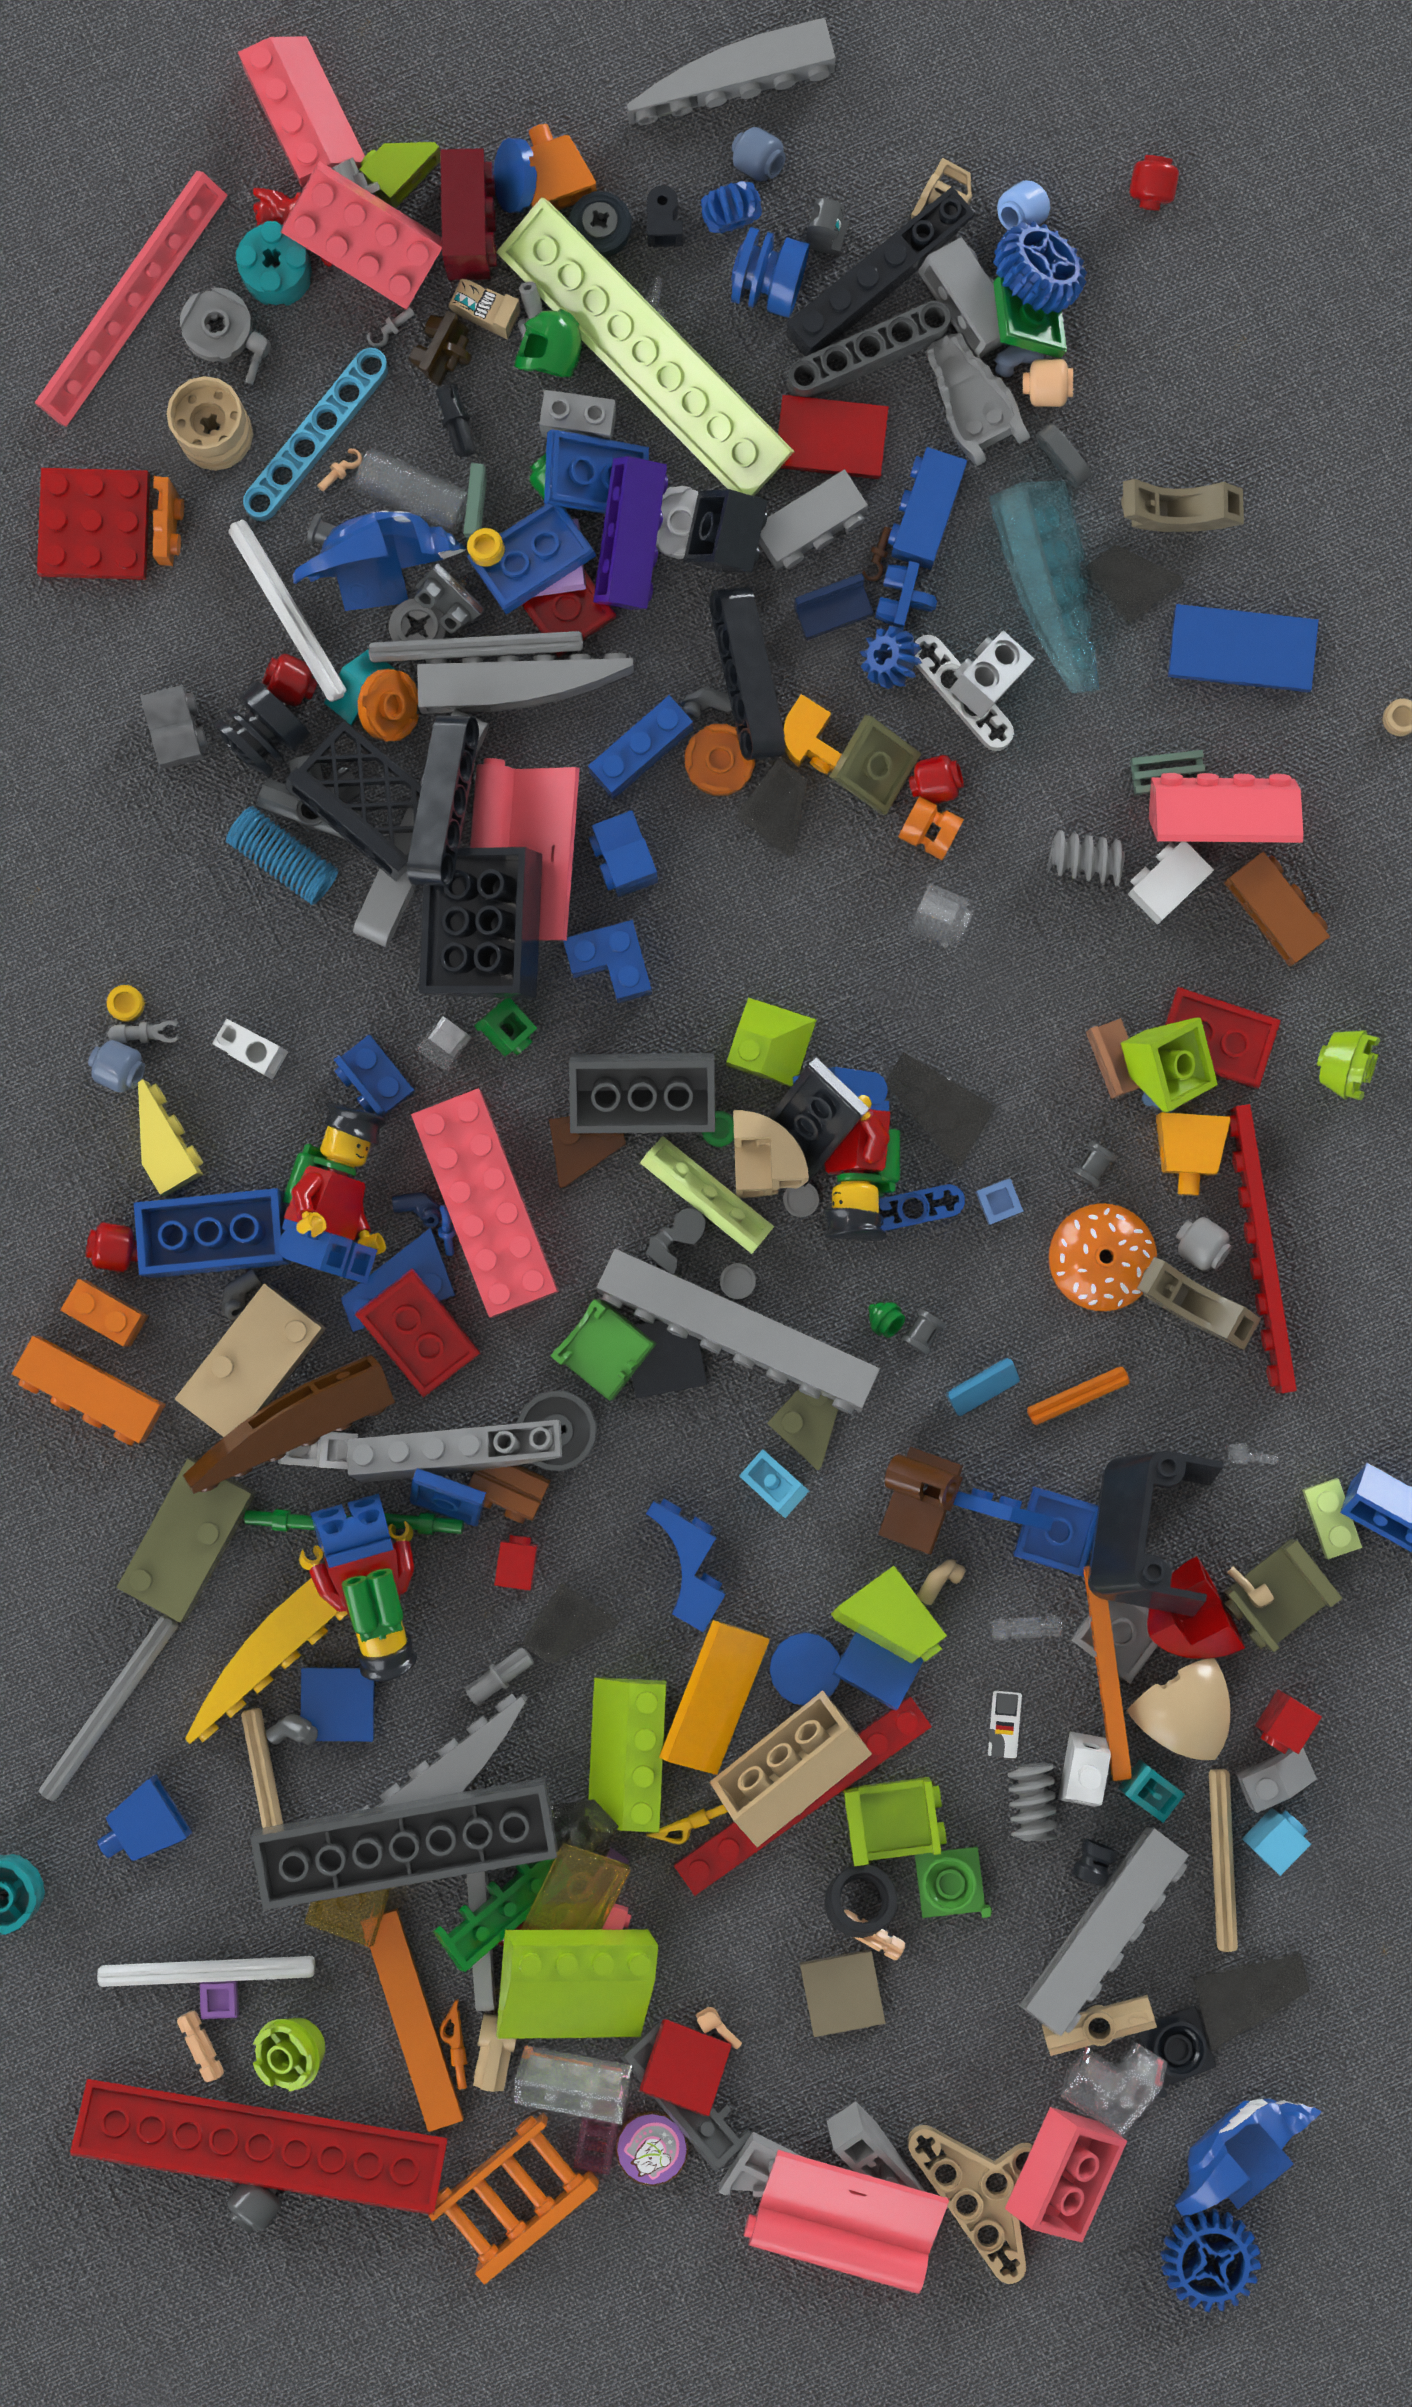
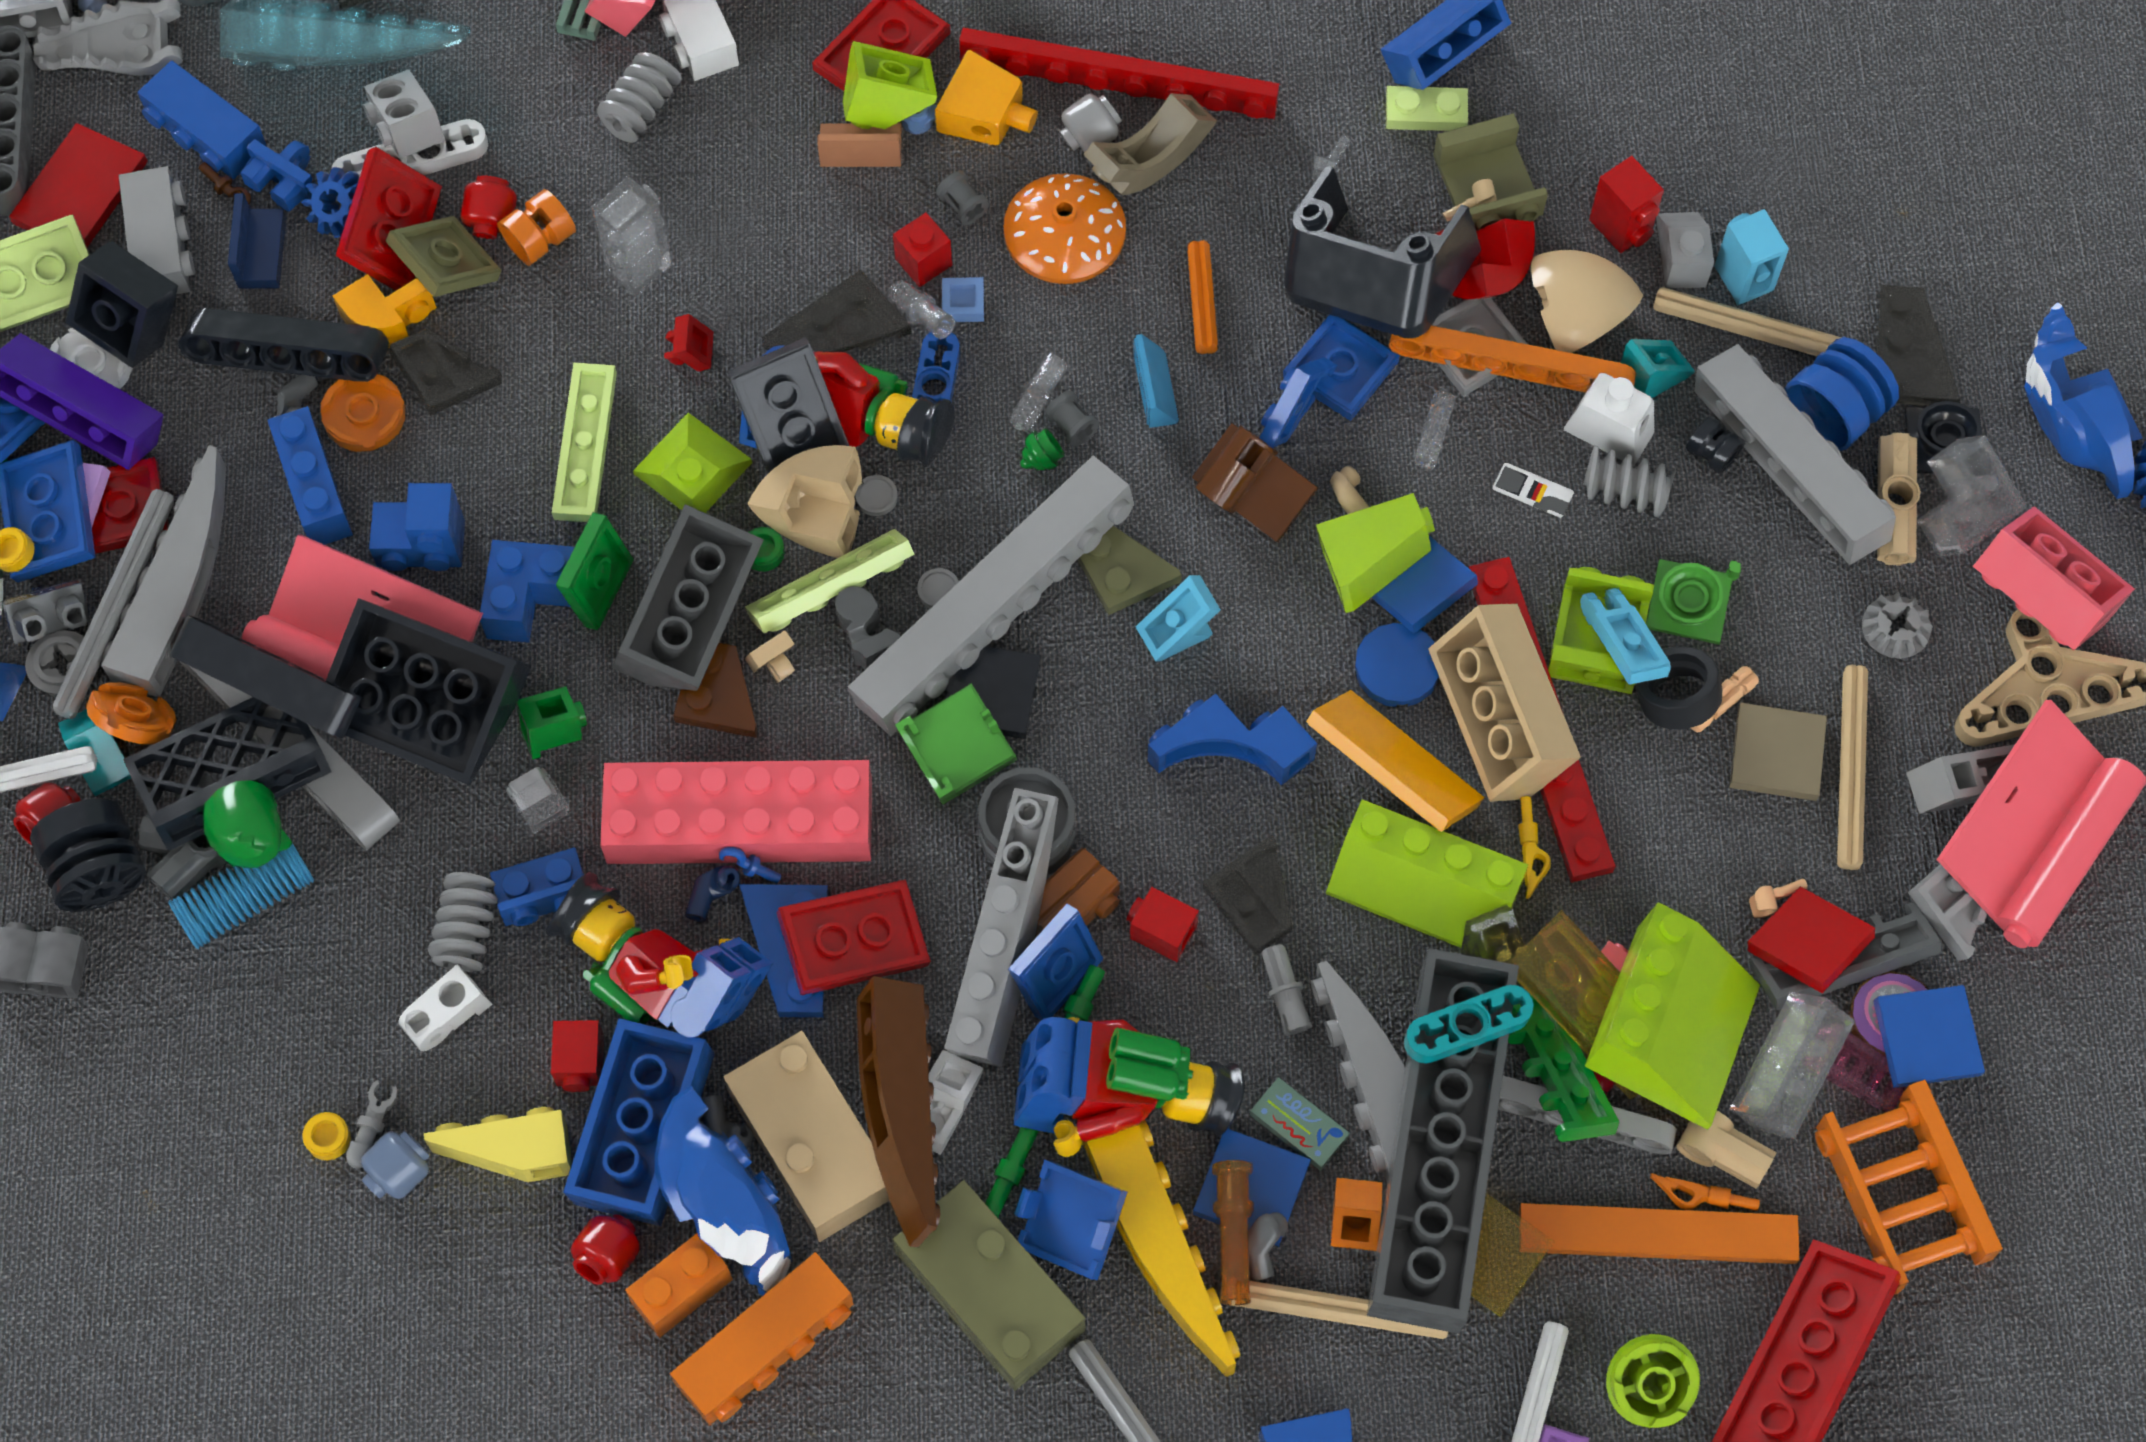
camera: 70 degrees left, 20 degrees down
(173, 1319) = (711, 1181): none -> blue animal
(249, 1163) = (577, 1054): none -> red brick
(255, 1581) = (1070, 1219): none -> blue piece
(305, 1700) = (1234, 1210): none -> clear orange pin
(316, 843) = (244, 824): none -> green piece
(317, 1034) = (460, 921): none -> light grey piece
(337, 1792) = (1356, 1214): none -> orange brick
(399, 1722) = (1299, 1123): none -> sand green tile
(517, 1849) = (1442, 1048): none -> teal beam
(627, 1175) = (773, 656): none -> tan tile
(638, 1011) = (595, 571): none -> green plate
(639, 2180) = (1928, 1036): none -> blue tile
(756, 949) = (584, 442): none -> yellowish green plate
(850, 2056) = (1852, 768): none -> tan axle
(874, 998) = (691, 343): none -> red tile
(882, 1847) = (1625, 637): none -> medium azure hinge
(902, 701) = (385, 199): none -> red tile
(937, 1294) = (1038, 393): none -> clear axle
(975, 1172) = (922, 309): none -> clear axle
(979, 2041) = (1903, 642): none -> light grey gear
(1030, 1151) = (922, 249): none -> red brick
(1179, 1957) = (1844, 391): none -> blue wheel

